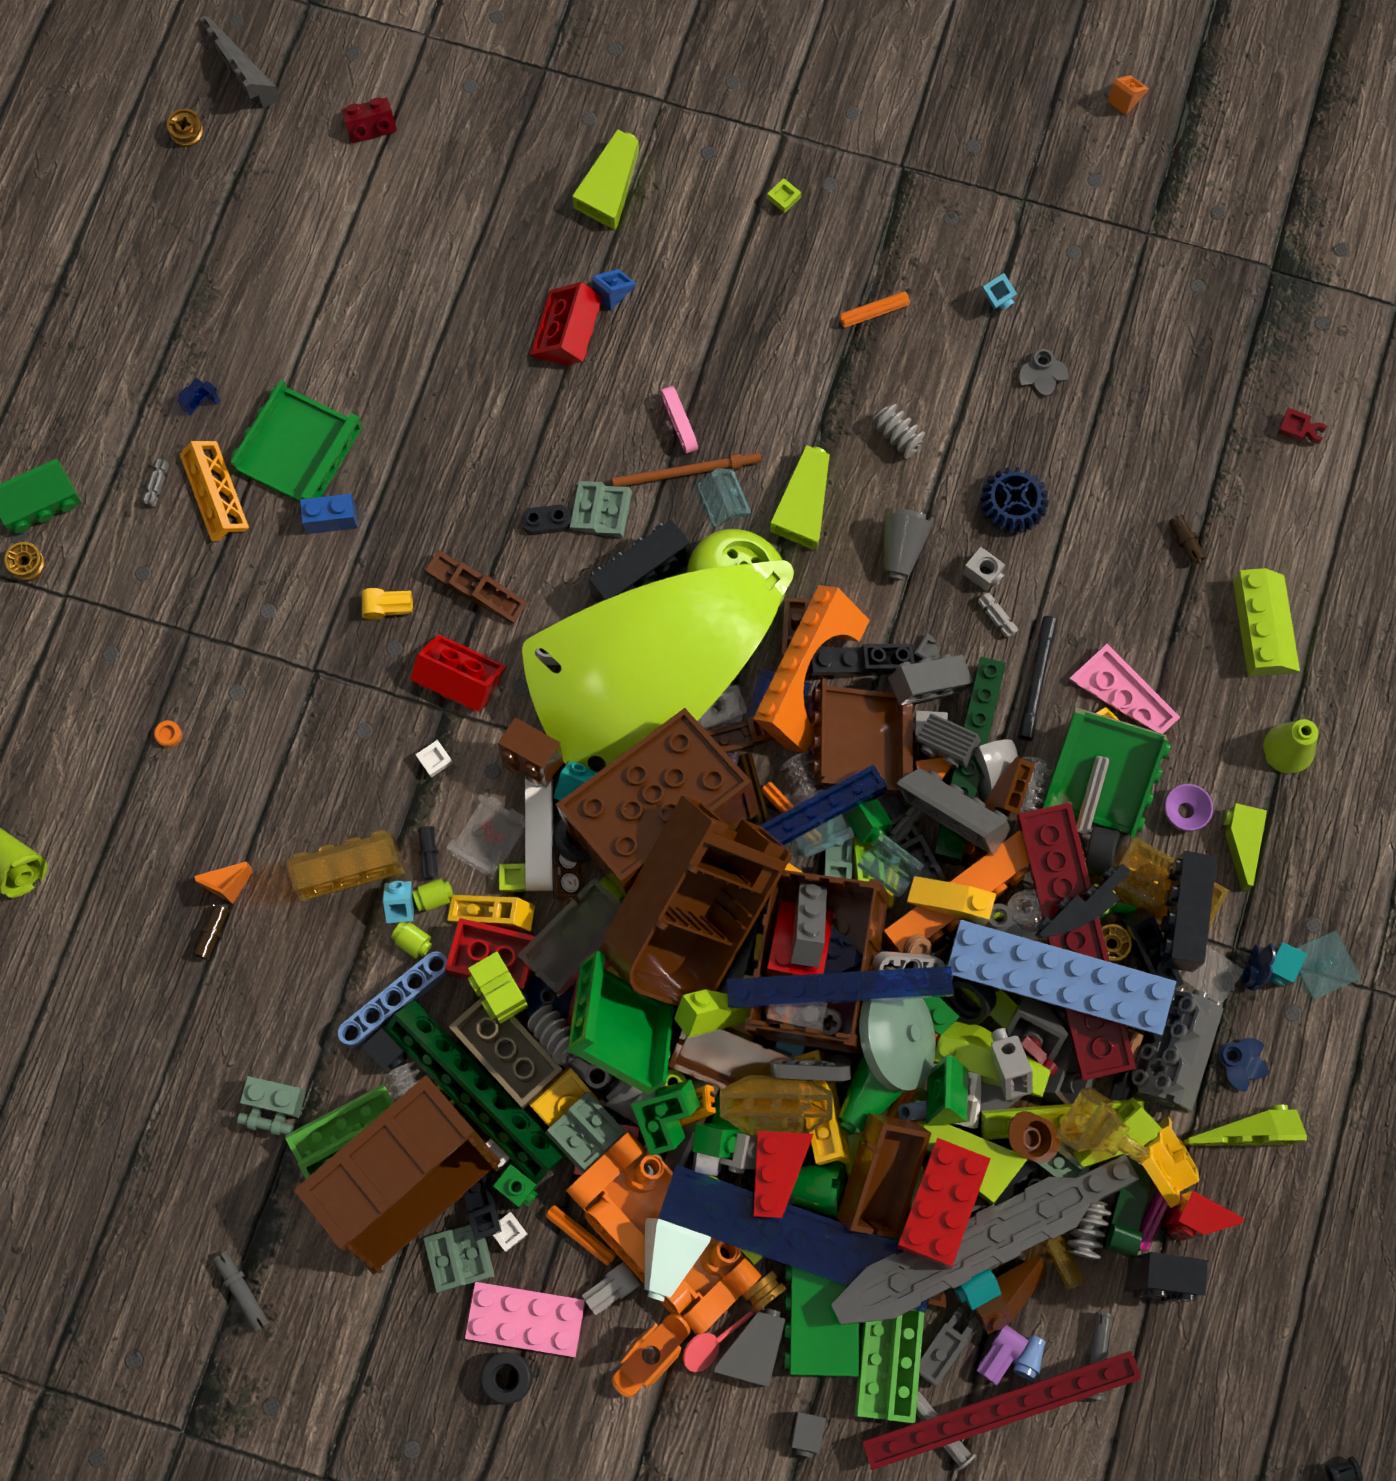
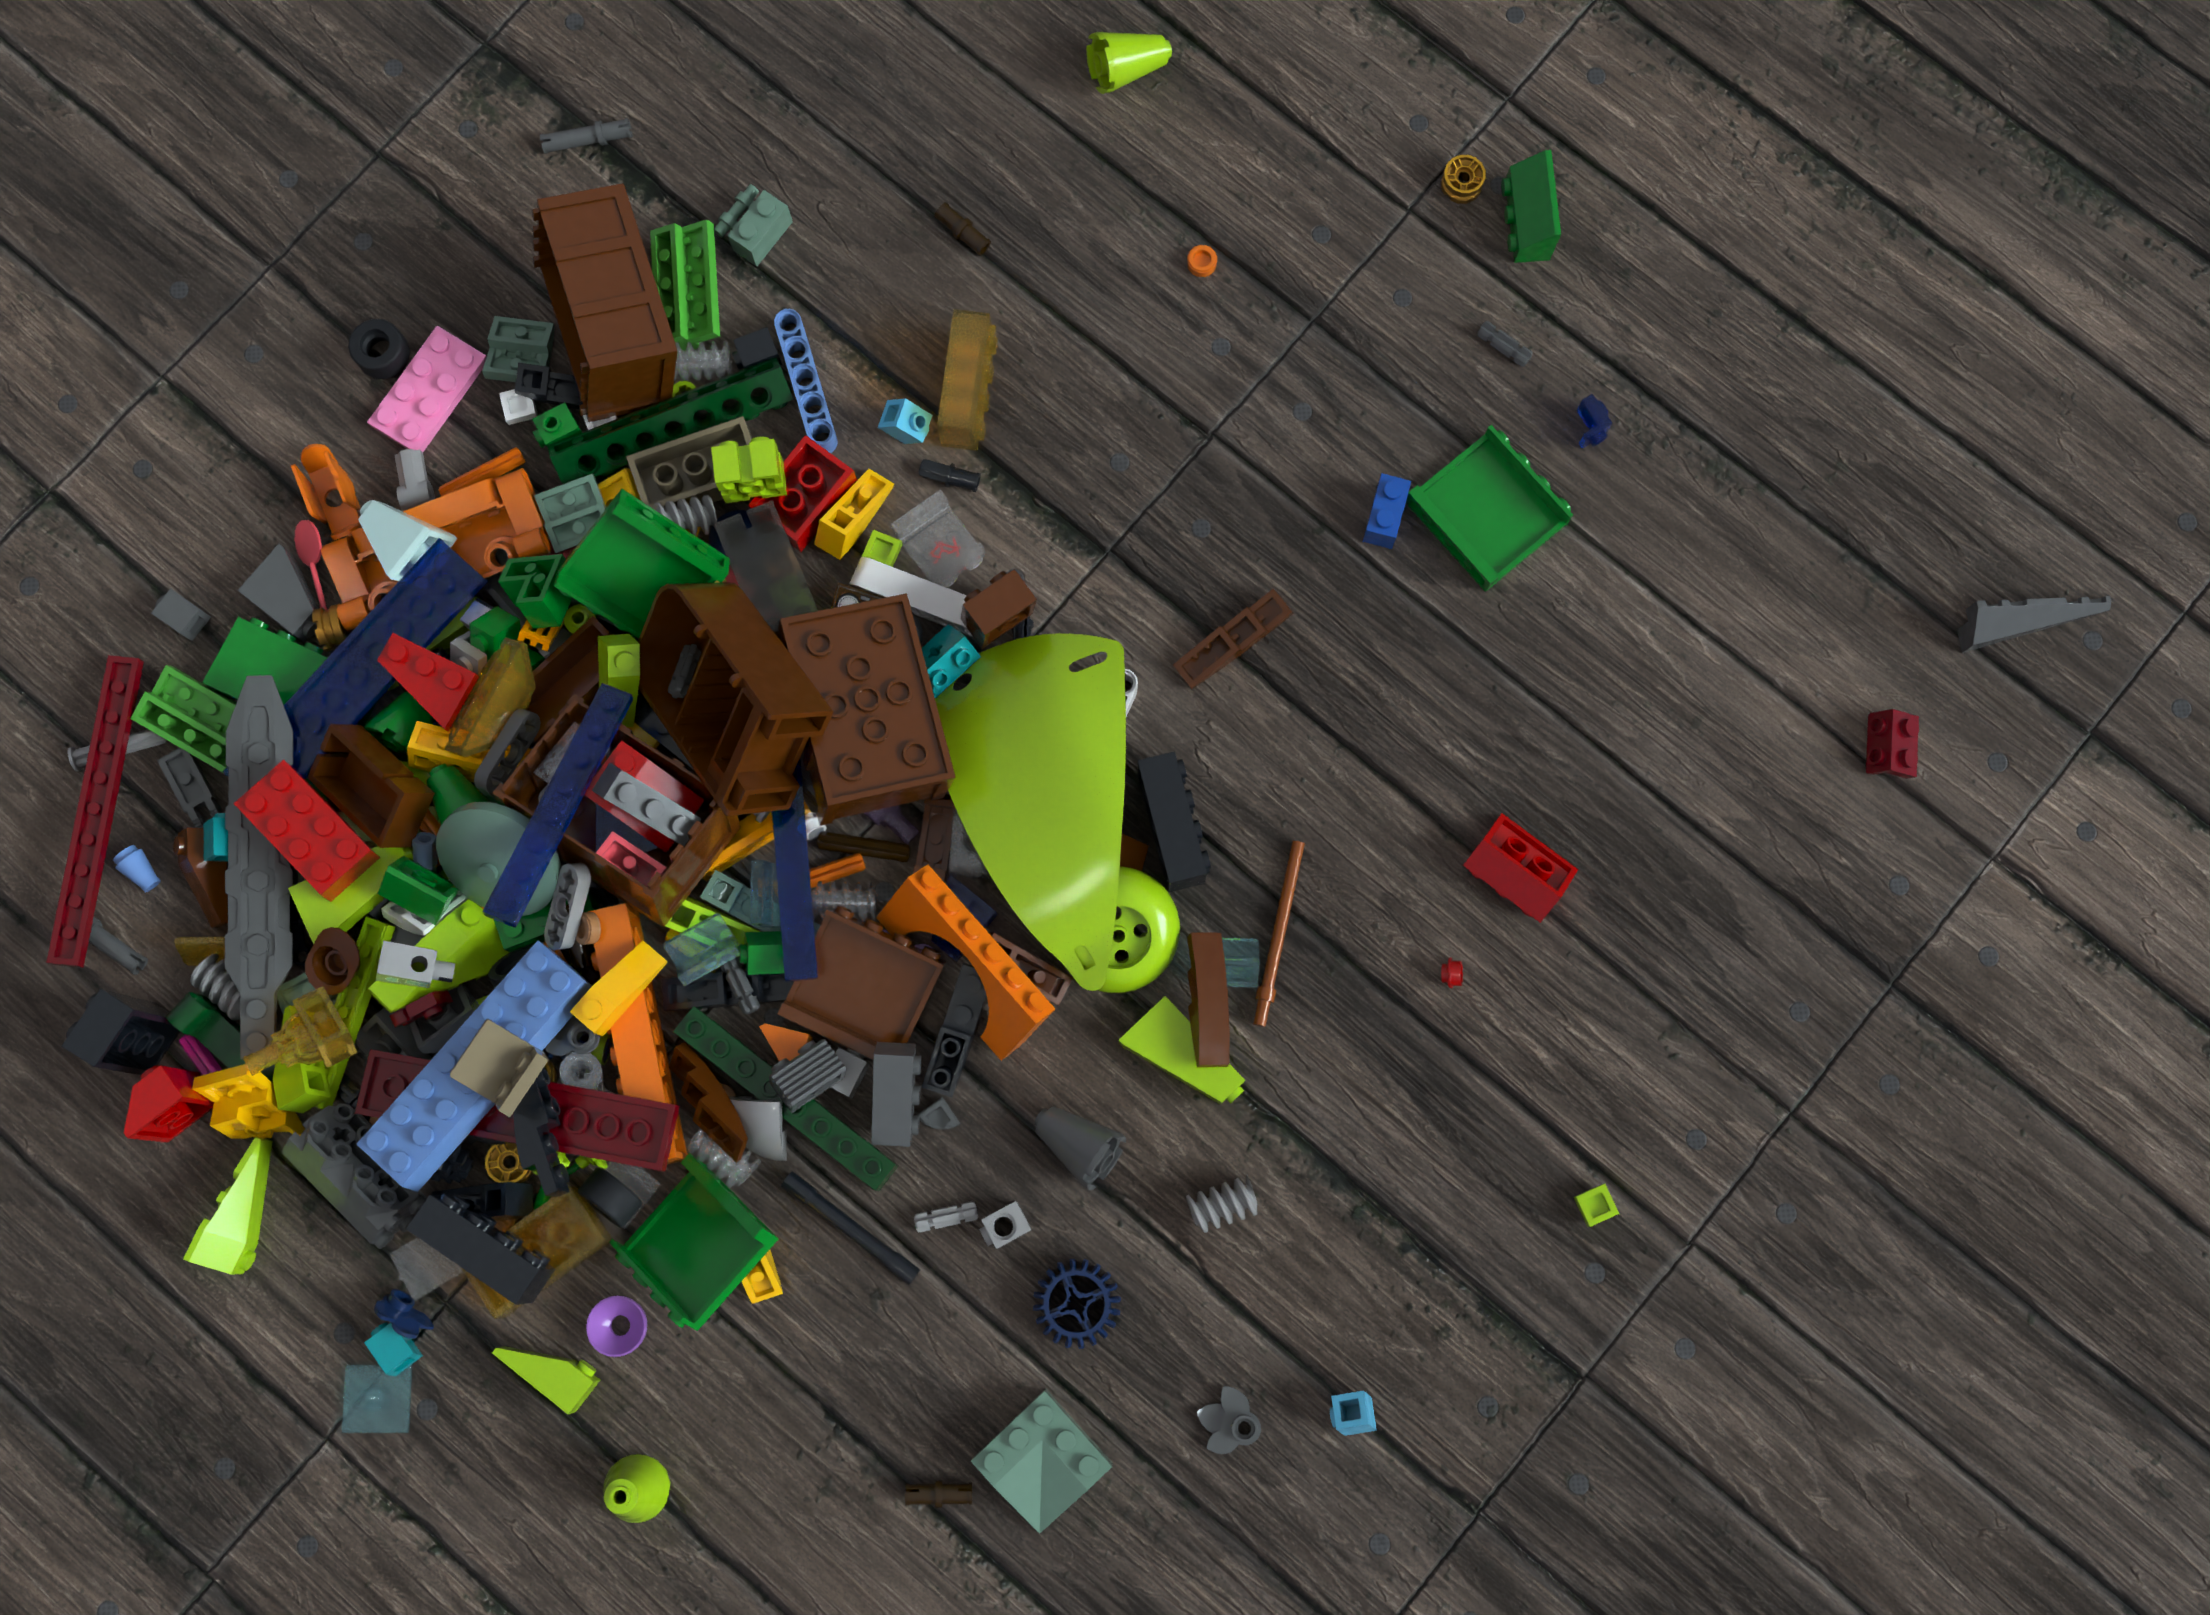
camera: 115 degrees right, 5 degrees up
(191, 134) = (1945, 527): pearl gold wheel -> none
(207, 488) = (1470, 391): light orange fence -> none
(226, 881) = (1006, 256): orange slope -> none
(378, 603) = (1256, 528): yellow piece -> none
(411, 939) = (860, 422): lime brick -> none
(433, 895) = (900, 461): lime brick -> none
(434, 758) = (1051, 519): white plate -> none
(457, 672) = (1139, 580): red slope -> none
(546, 522) = (1284, 748): black plate -> none
(600, 509) = (1271, 815): sand green slope -> none
(608, 181) = (1698, 997): lime slope -> none
(612, 287) = (1551, 944): blue slope -> none
(663, 343) = (1452, 973): none -> red plate
(679, 419) = (1344, 949): bright pink beam -> none
(683, 967) = (684, 671): none -> dark grey axle
(765, 486) = (1209, 999): none -> reddish brown slope
(855, 924) = (630, 858): none -> coral slope
(874, 309) = (1397, 1250): orange axle -> none
(955, 810) = (719, 1039): dark grey slope -> none
(1005, 1348) = (154, 839): medium lavender piece -> none
(1057, 939) = (499, 1066): none -> dark tan bracket
(1092, 795) = (678, 1217): light grey axle -> none
(1122, 688) = (799, 1318): bright pink wing -> none
(1130, 480) = (1042, 1461): none -> sand green slope
(1246, 1063) = (313, 1248): dark blue plate -> none
(1265, 623) = (792, 1538): lime slope -> none

